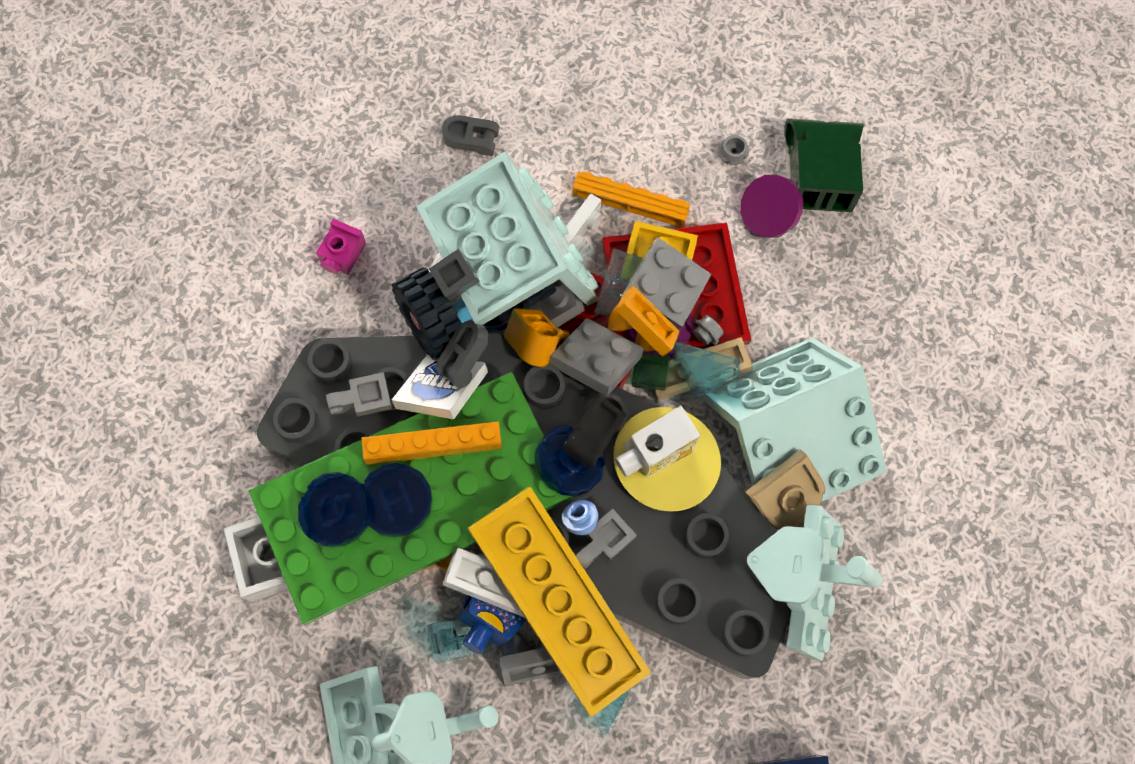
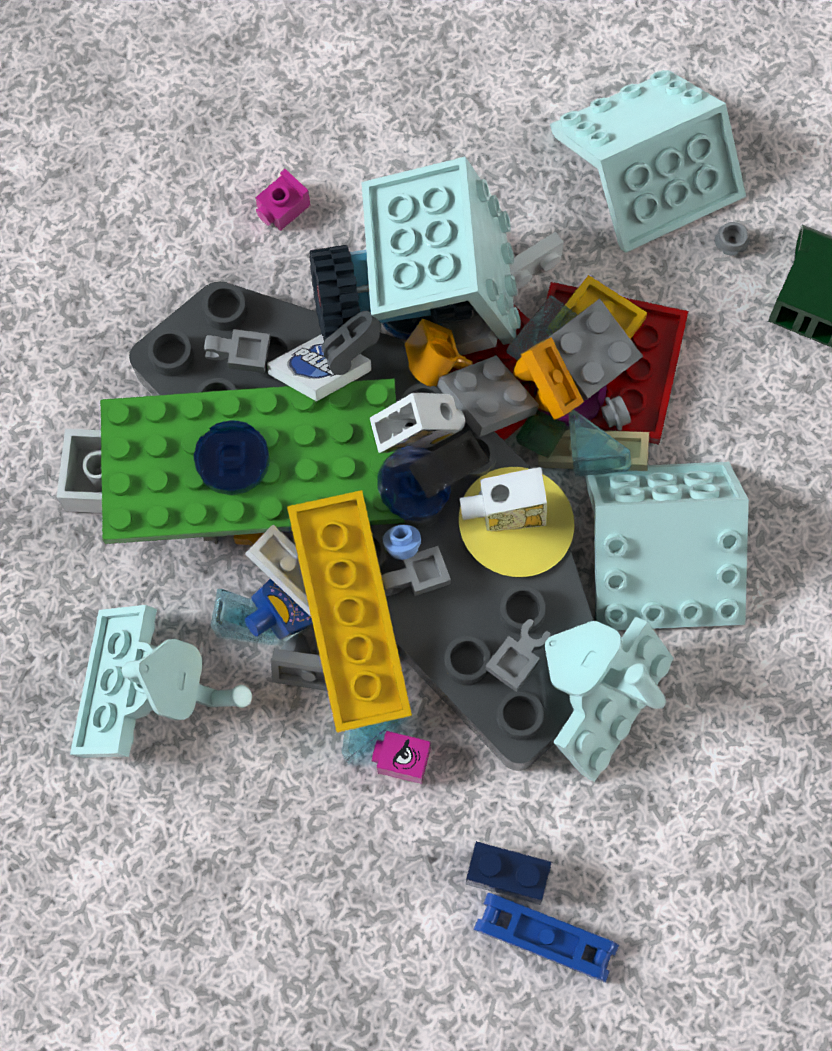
camera: 30 degrees right, 0 degrees up
(335, 510) = (171, 444): clear blue tile -> none
(431, 443) = (287, 416): light orange piece -> none
(454, 275) = (368, 261): dark grey plate -> none
(459, 133) = (450, 122): dark grey plate -> none
(562, 394) = (432, 416): none -> white torso
(632, 199) = (600, 253): light orange piece -> none
(650, 94) = (659, 155): none -> light aqua bracket
(652, 710) = (402, 756): none -> dark pink brick
(724, 587) = (516, 659): none -> light grey plate
(771, 206) = (742, 310): magenta tile -> none
(787, 491) = (625, 595): tan tile -> none

